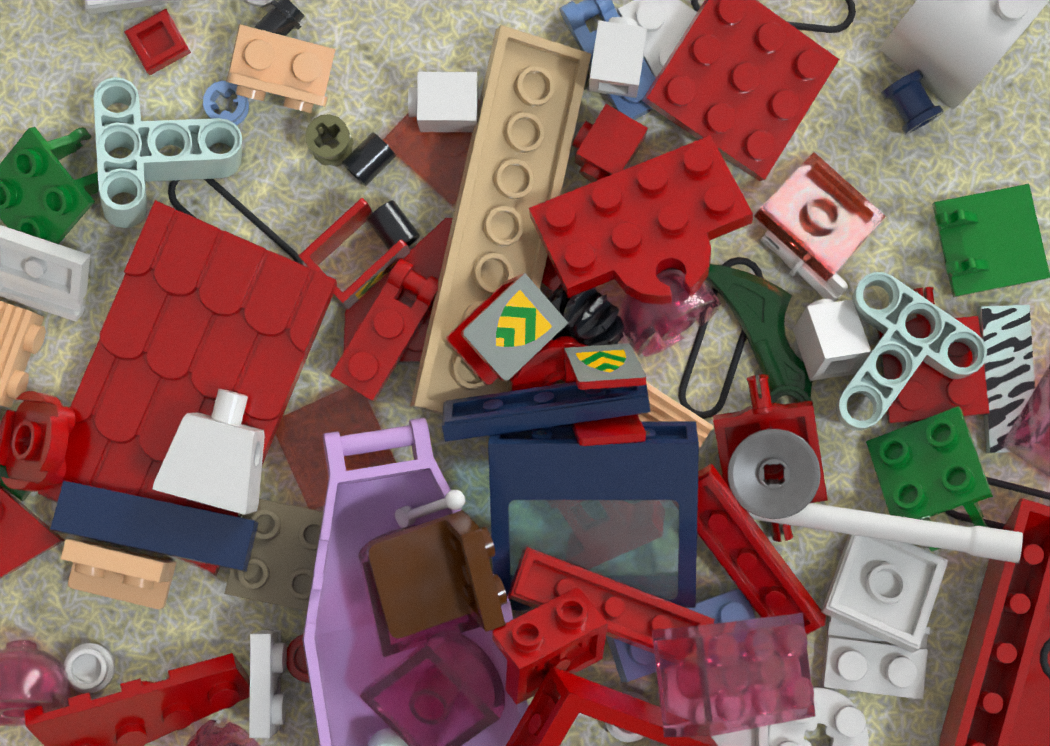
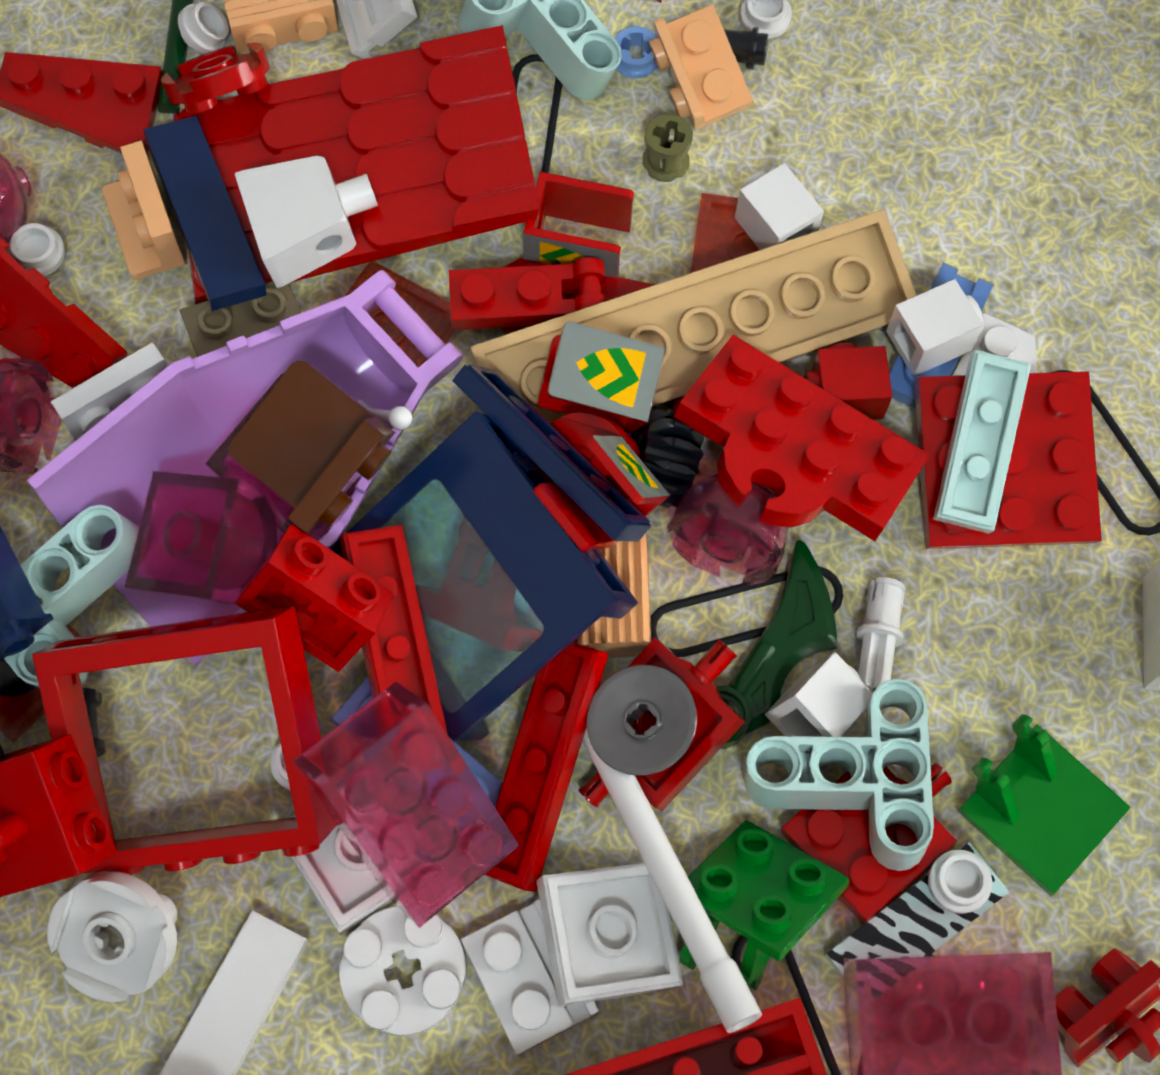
camera: 50 degrees right, 15 degrees down
(369, 159) = (676, 192): black hinge -> none
(392, 225) = (635, 245): black hinge -> none
(725, 91) = (982, 441): none -> light aqua tile
(819, 216) = (934, 618): clear red tile -> none
(912, 102) = (1117, 636): dark blue bush -> none
(1006, 334) = (960, 881): none -> white plate

